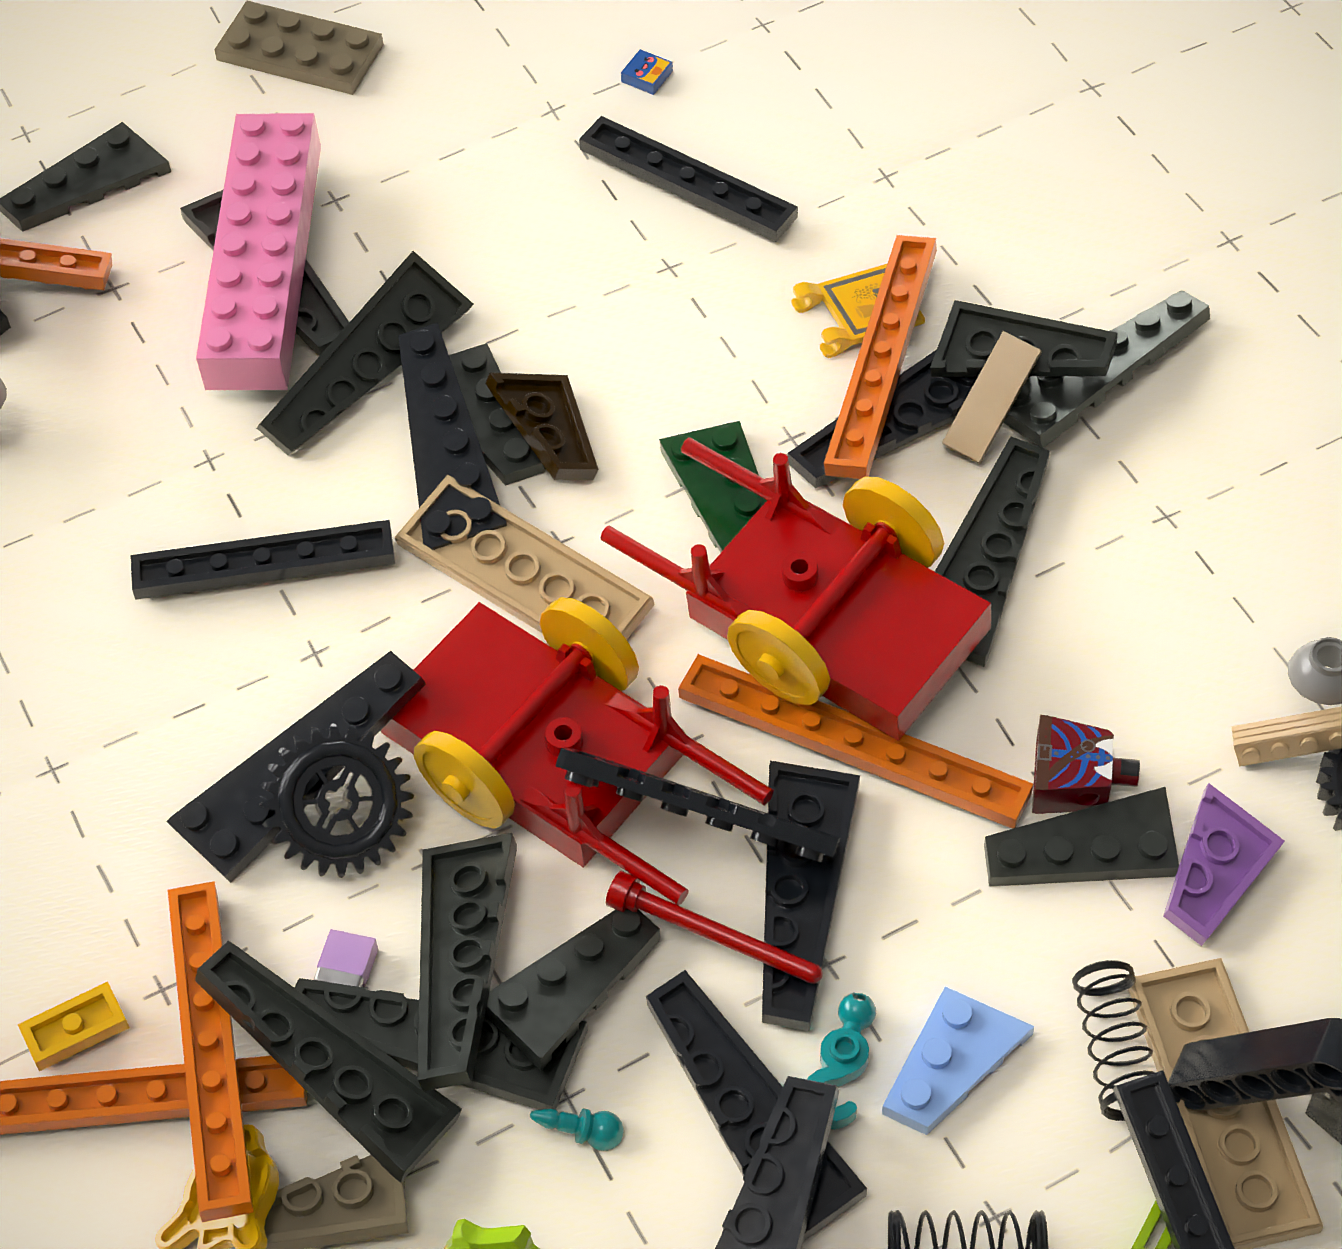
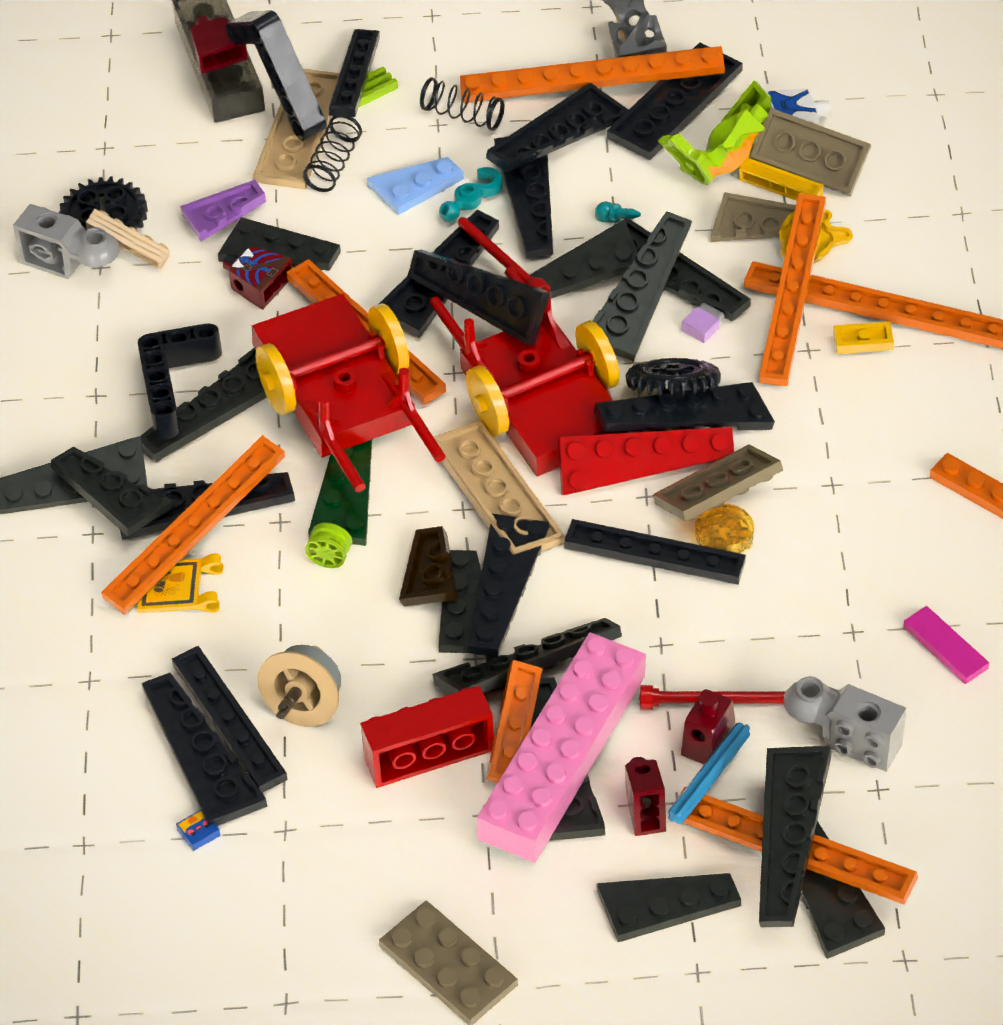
camera: 155 degrees left, 5 degrees down
(75, 297) = (709, 773): none -> dark azure axle
(102, 339) = (714, 718): none -> dark red torso
(148, 259) = (645, 781): none -> dark red torso
(178, 625) = (725, 529): none -> clear yellow tile
(186, 377) = (652, 697): none -> red piece
(207, 675) = (718, 483): none -> dark tan plate
(333, 1063) = (729, 257): pearl dark grey wing -> none
(337, 267) = (514, 716): none -> orange plate
(407, 636) = (616, 458): none -> red wing
(431, 207) = (427, 736): none -> red brick
(611, 203) = (301, 685): none -> tan piece
(693, 129) = (208, 767): none -> black wing
(697, 398) = (330, 544): none -> lime wheel
(991, 397) = (150, 469): tan tile -> none
(1077, 537) = (169, 350): none -> black beam

